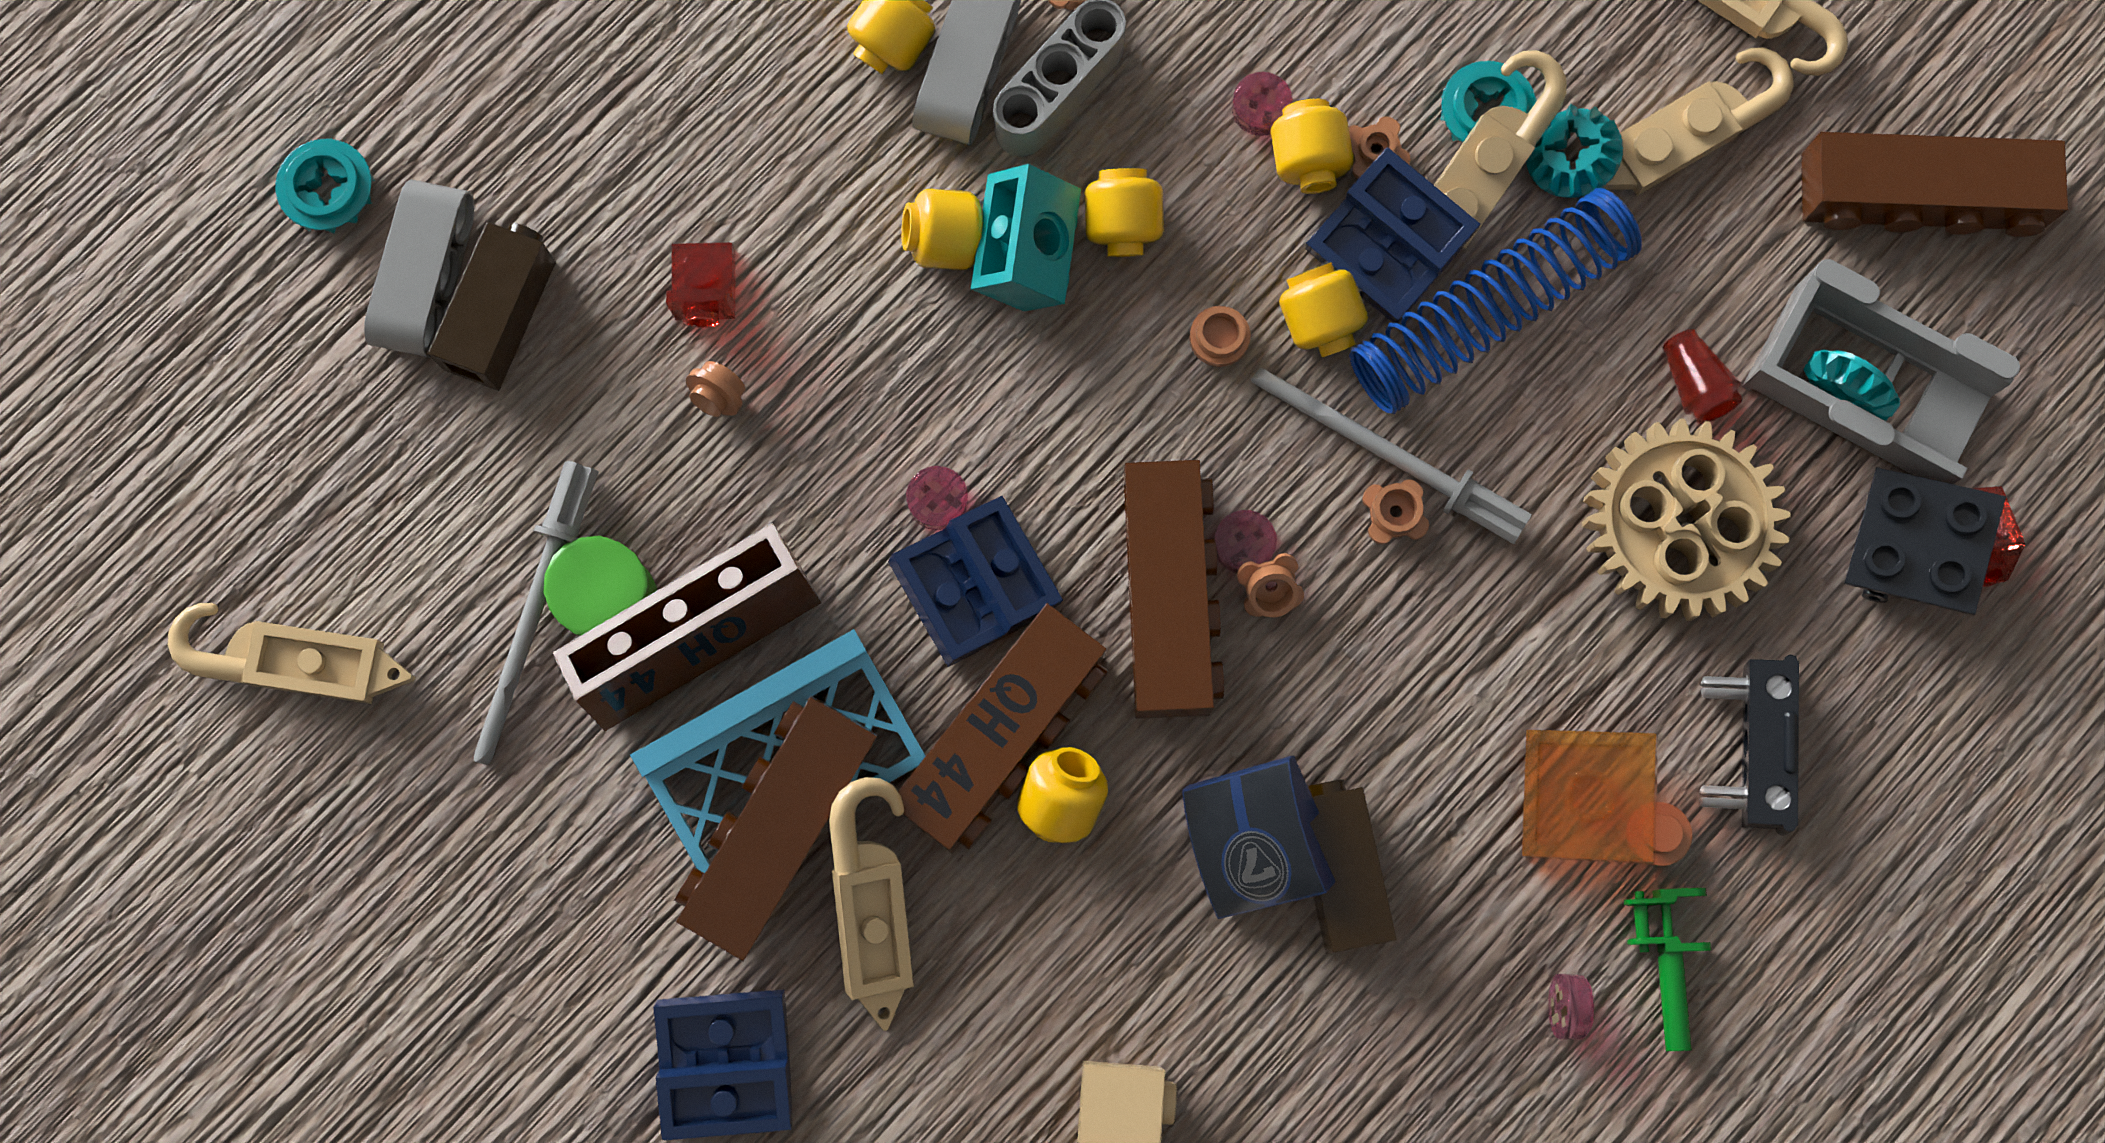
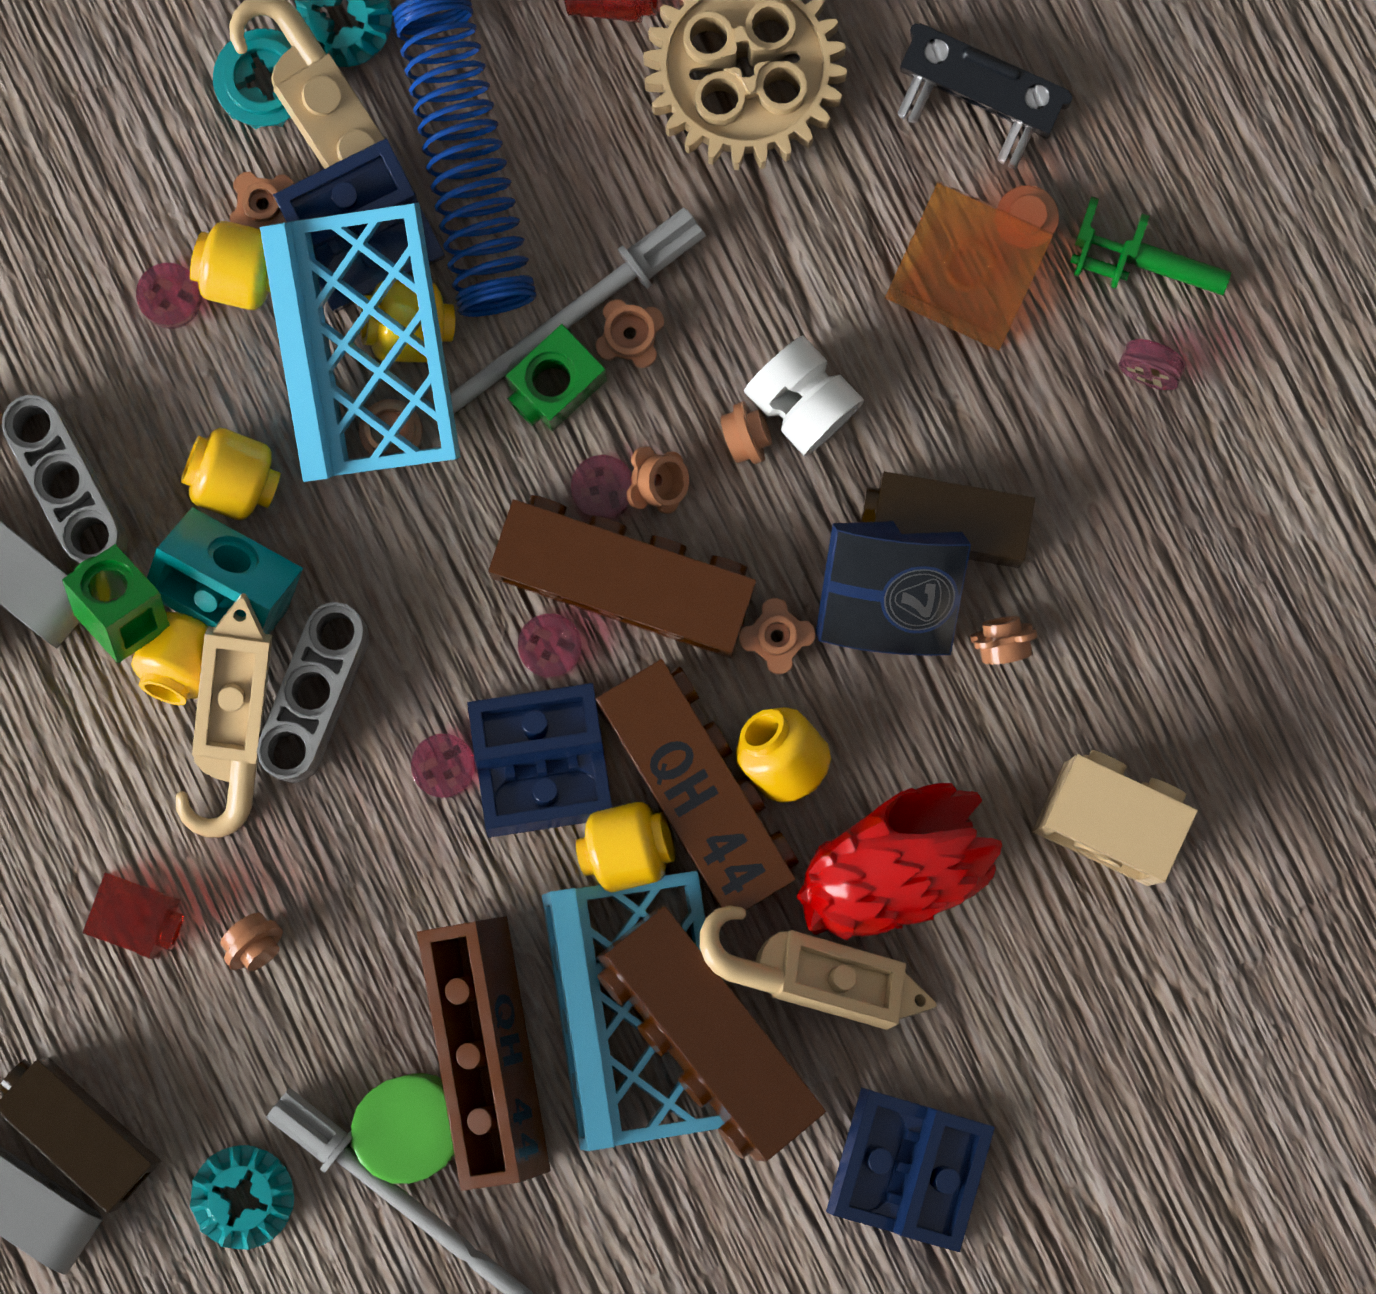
camera: 70 degrees left, 5 degrees up
(506, 489) = (269, 1183): none -> teal gear
(908, 289) = (229, 716): none -> tan plate
(922, 684) = (626, 846): none -> yellow head
(933, 339) = (309, 661): none -> light grey beam
(966, 150) = (118, 624): none -> green brick
(1000, 942) = (899, 864): none -> red head
(1082, 550) = (549, 646): none -> clear pink tile
(1154, 757) = (777, 654): none -> nougat plate
(1251, 964) = (1004, 640): none -> nougat plate
(1270, 223) = (307, 350): none -> medium azure fence
(1346, 650) = (746, 433): none -> nougat plate
(1349, 447) = (561, 352): none -> green brick
(1405, 684) = (803, 395): none -> white wheel

